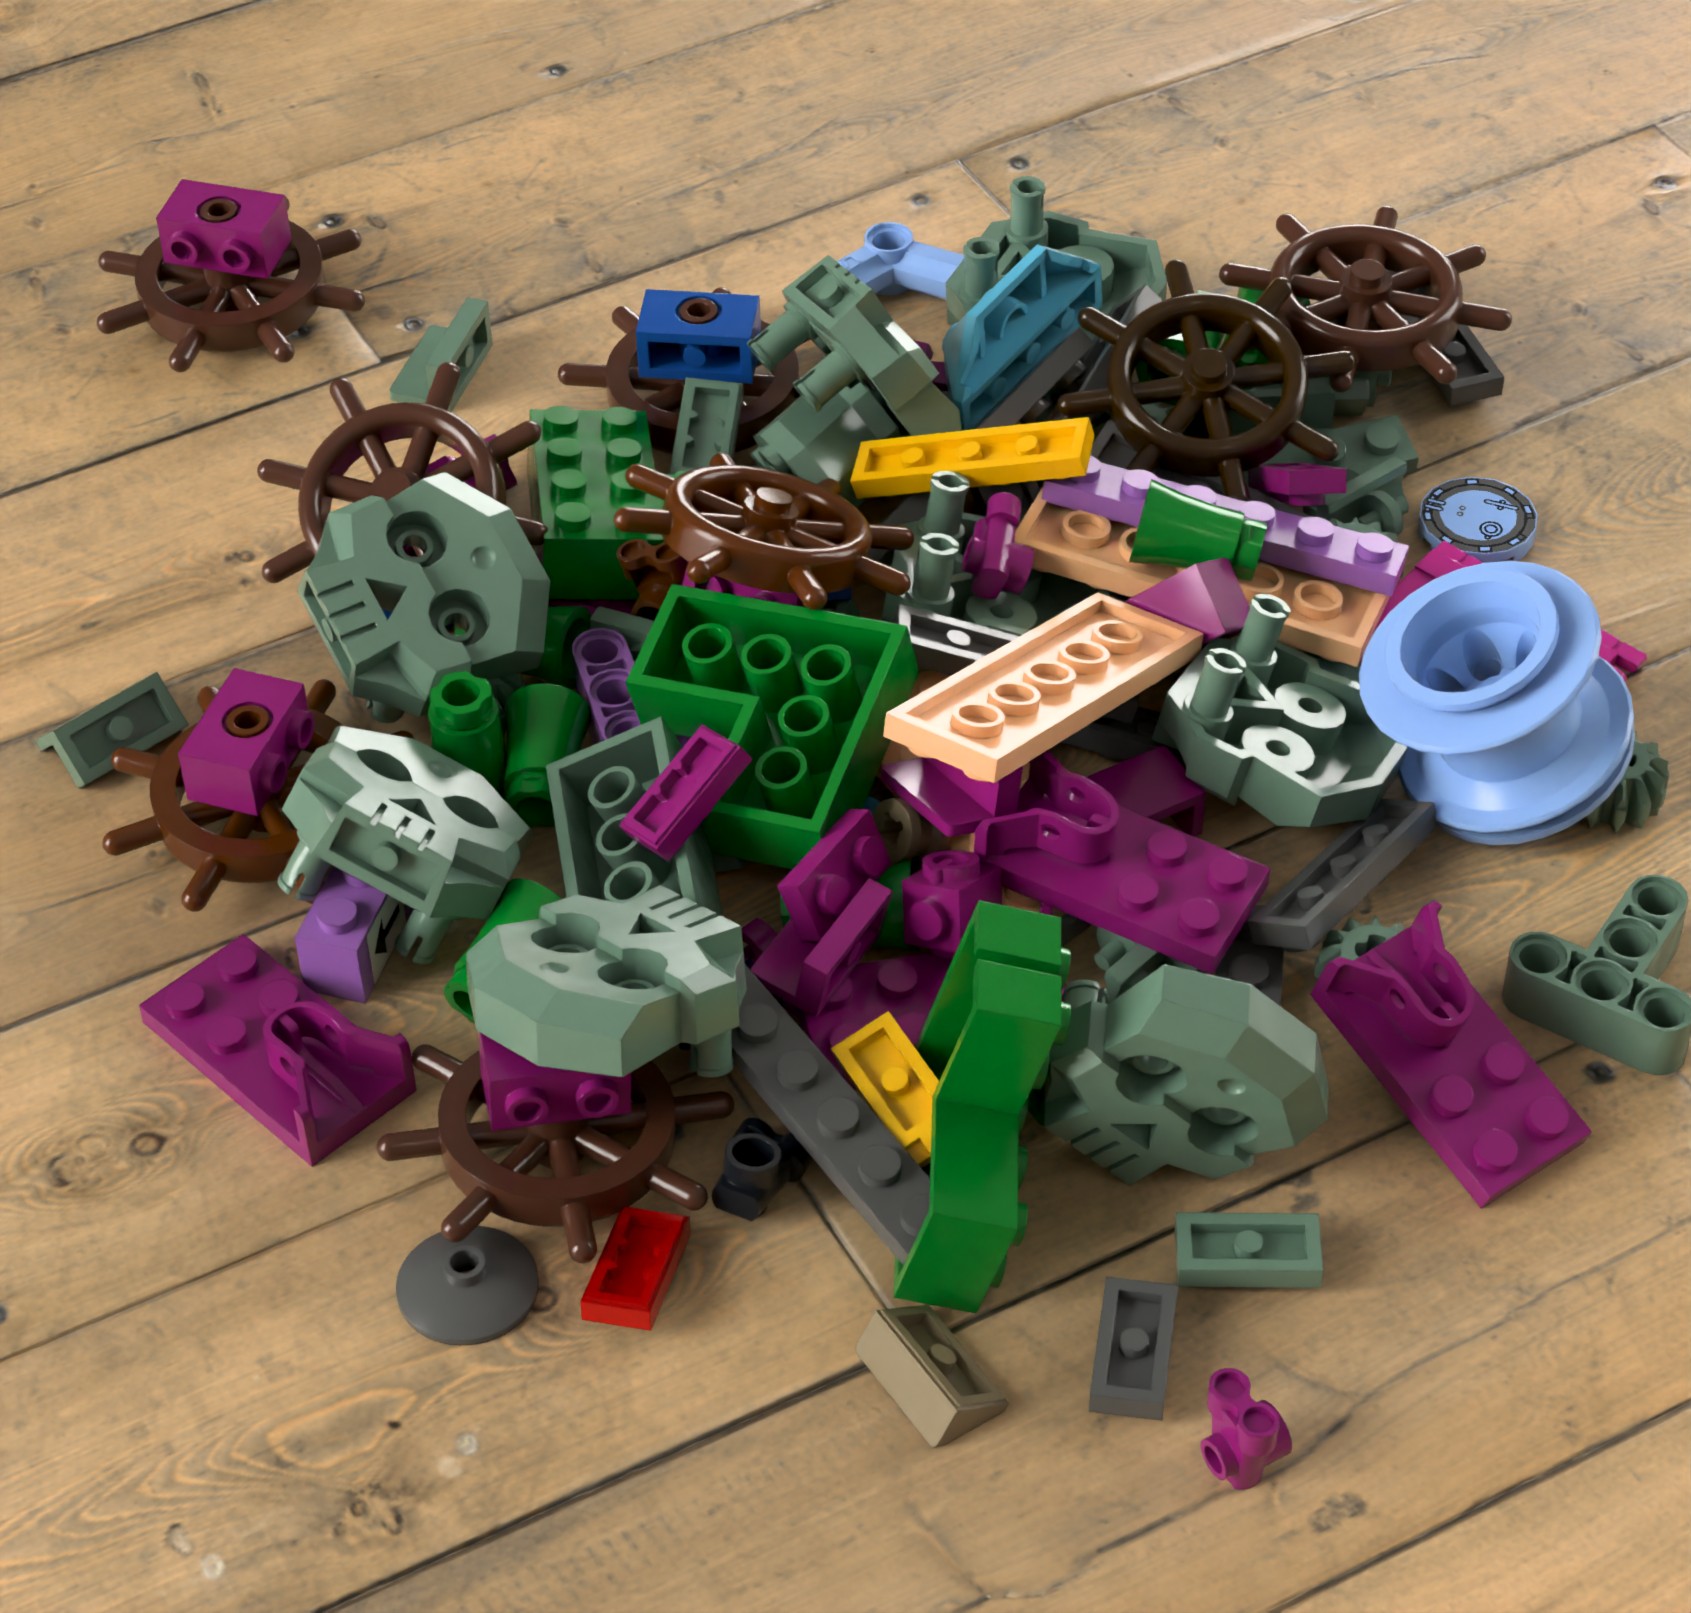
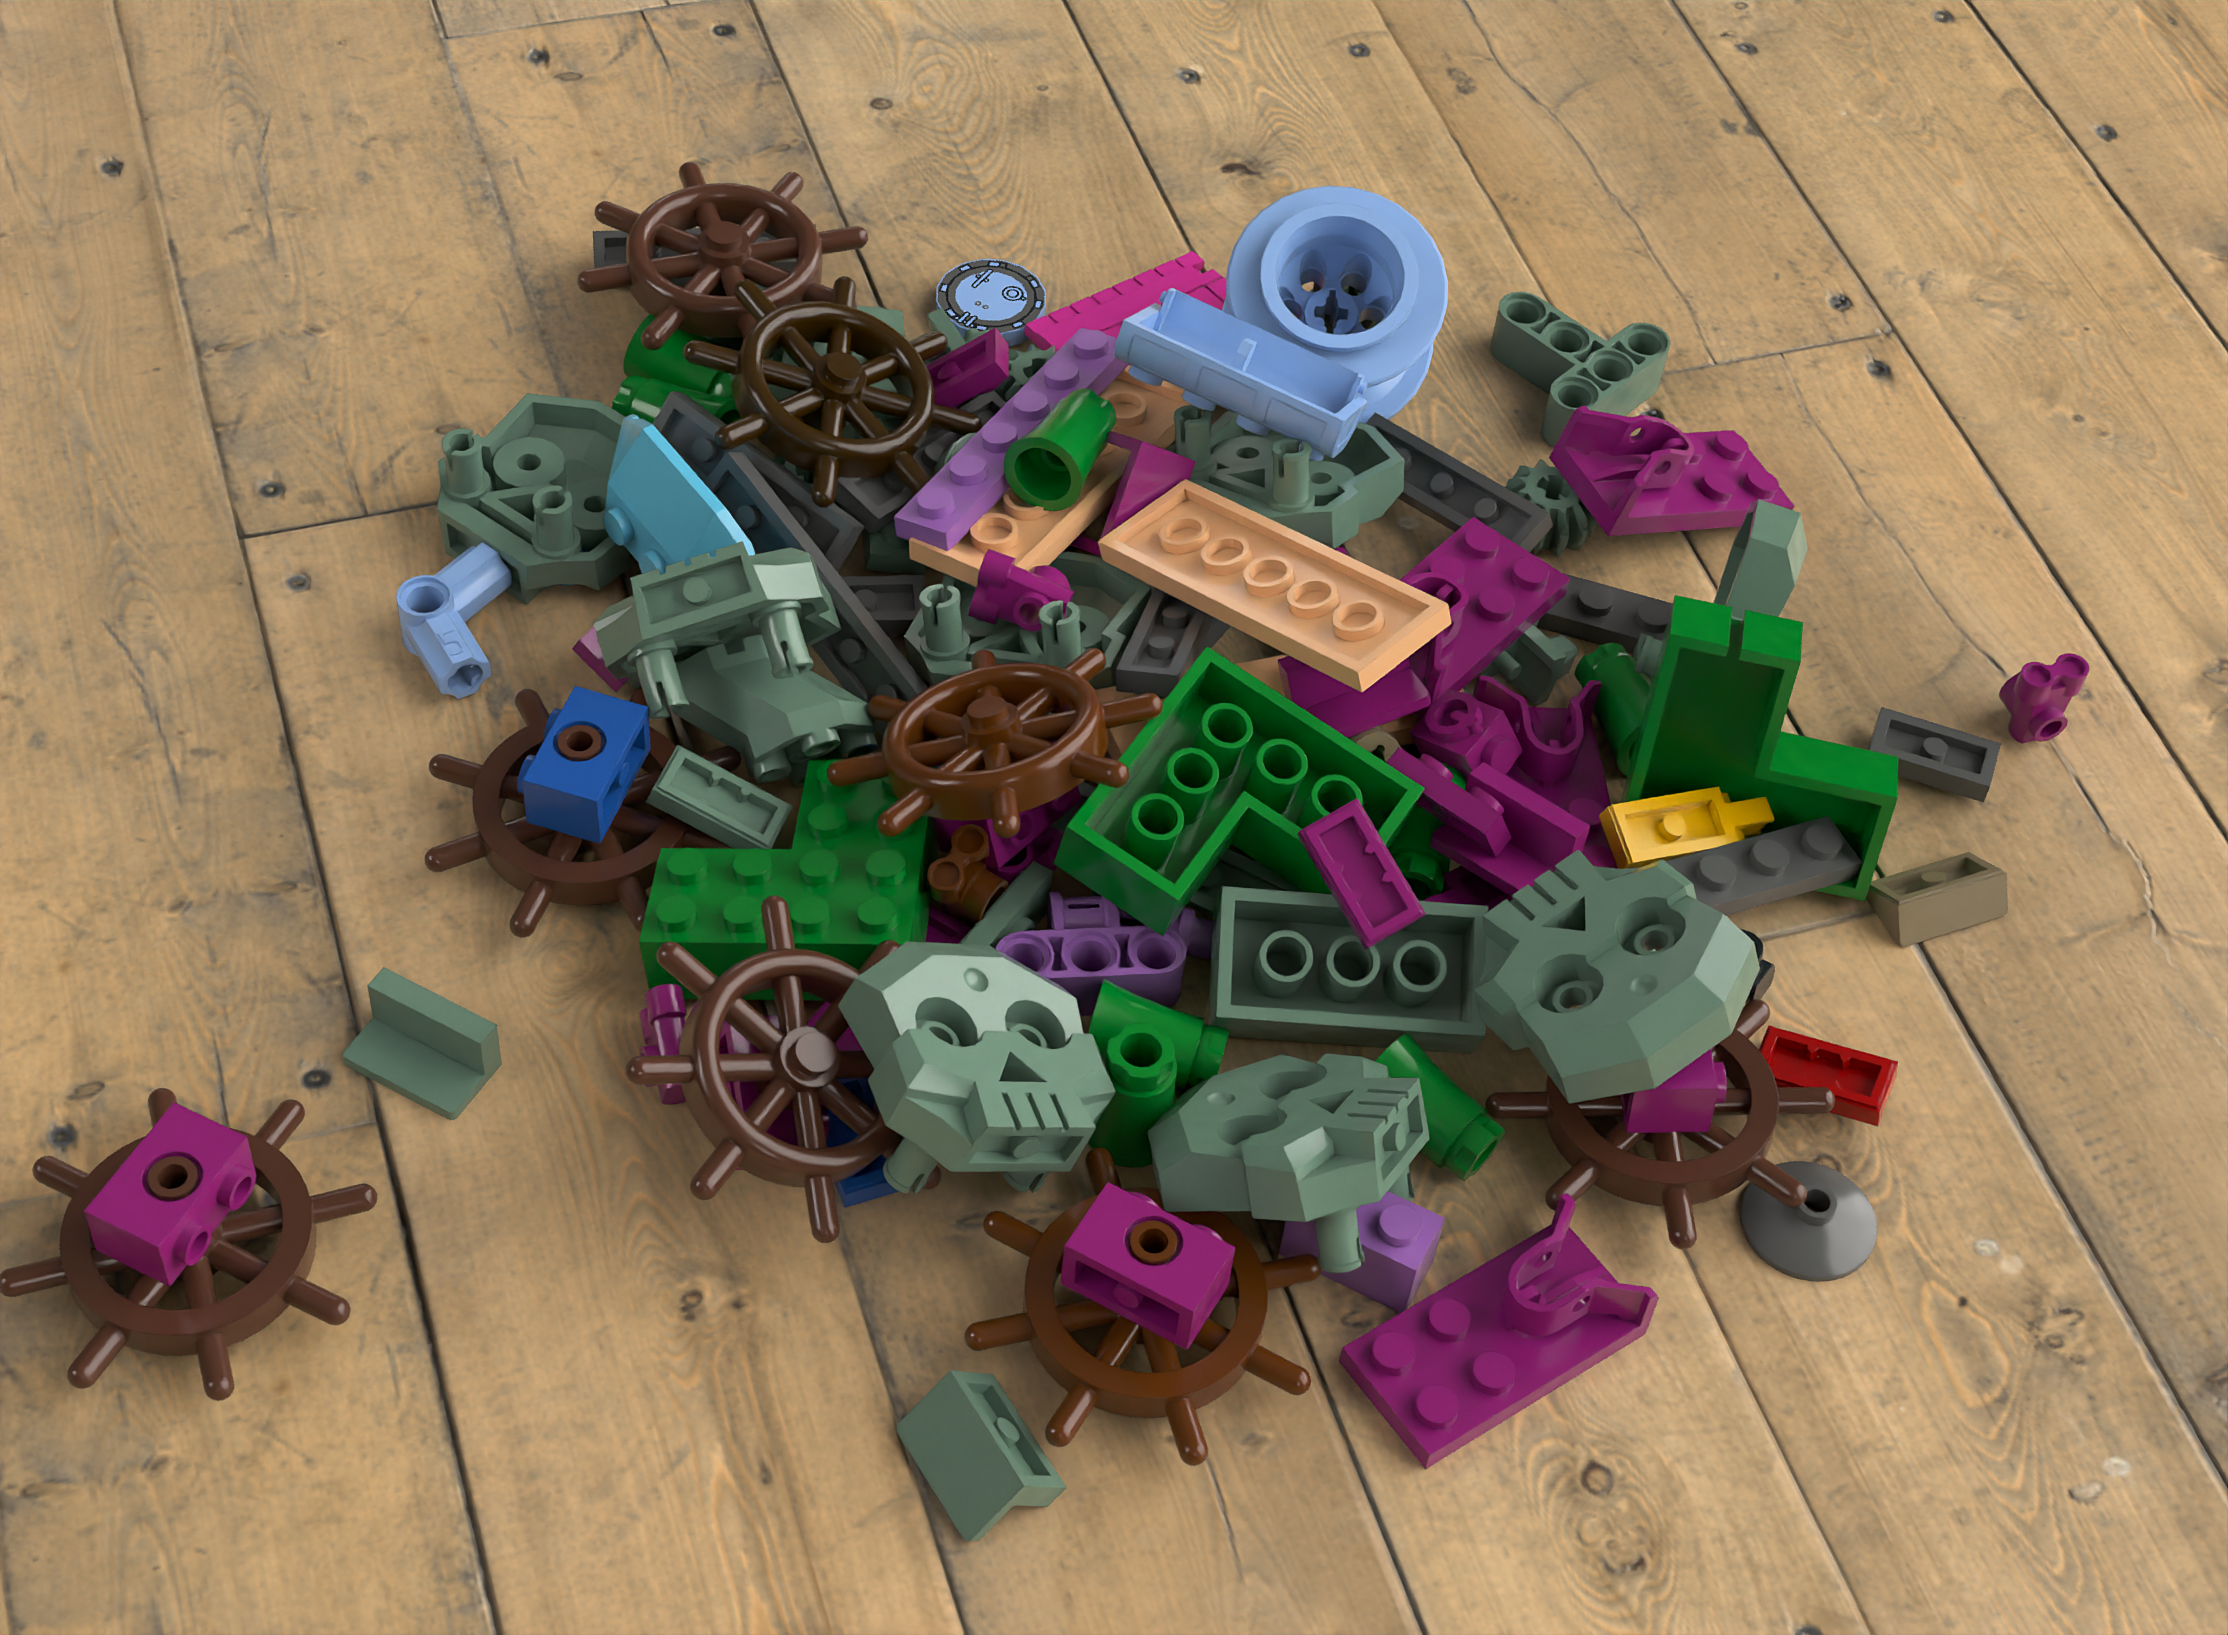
camera: 85 degrees left, 5 degrees up
(981, 455) = (894, 577): yellow plate -> none
(1248, 1250) = (1836, 661): sand green plate -> none
(1316, 616) = (1244, 371): none -> light blue container

